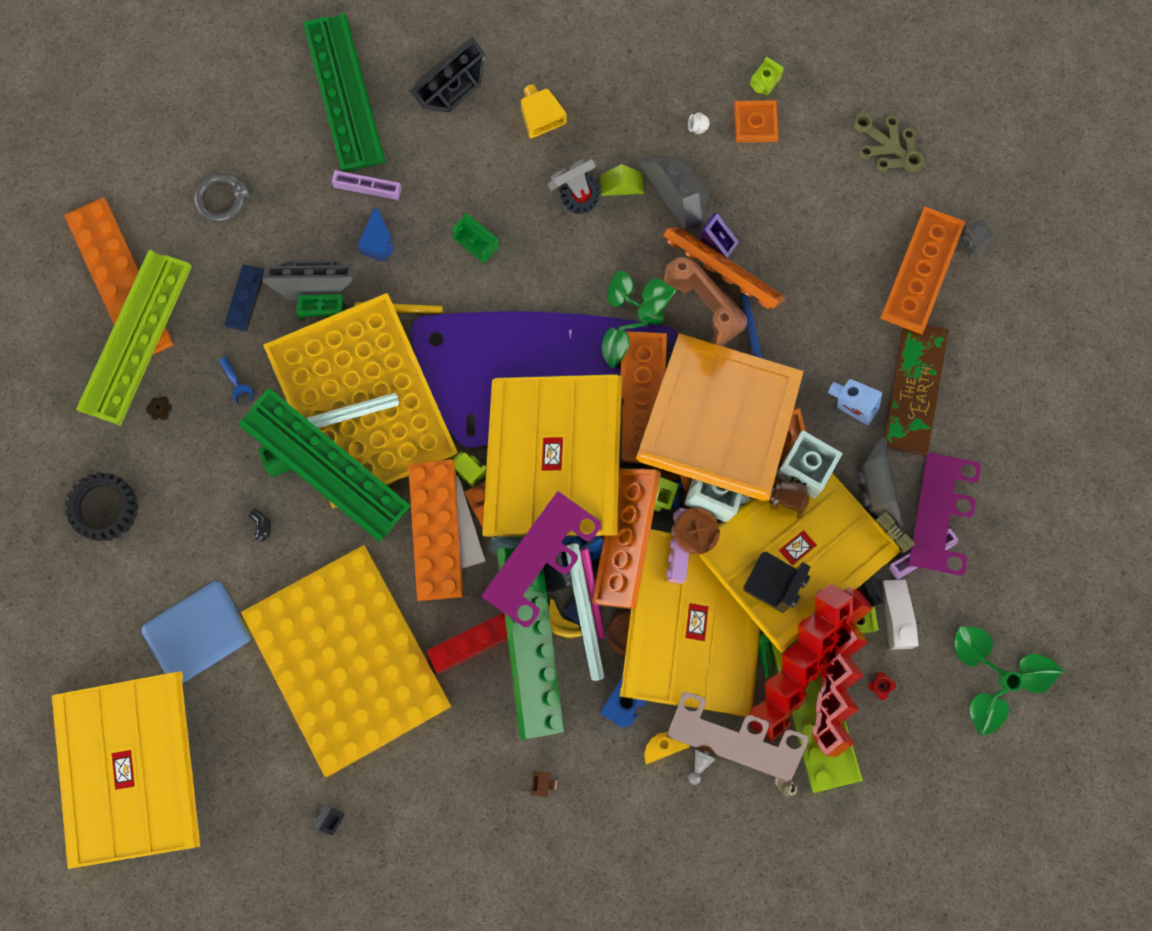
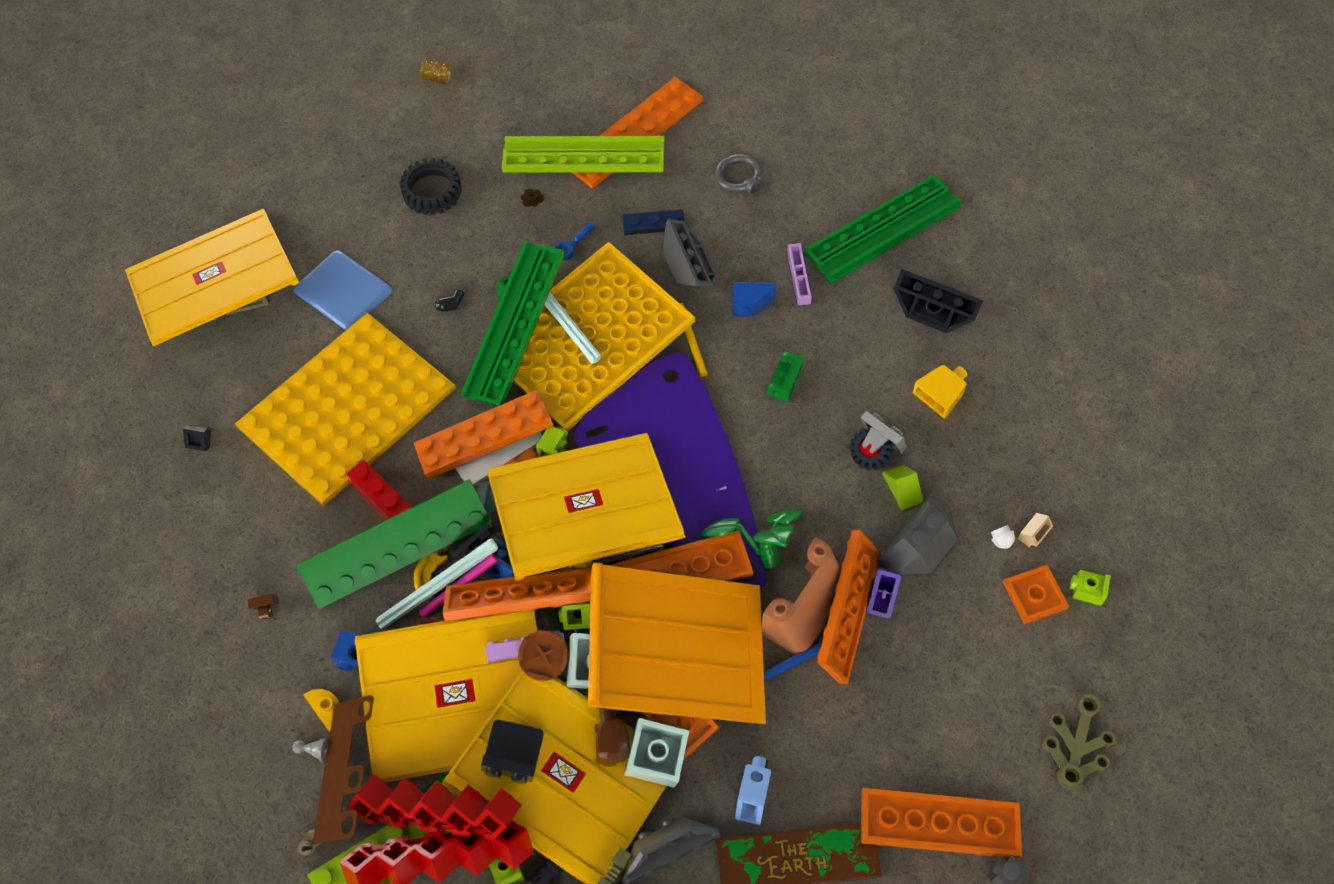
camera: 75 degrees right, 15 degrees down
(319, 305) = (664, 274): green hinge -> none
(535, 550) = (476, 509): magenta piece -> none
(701, 96) = (1035, 530): none -> tan piece

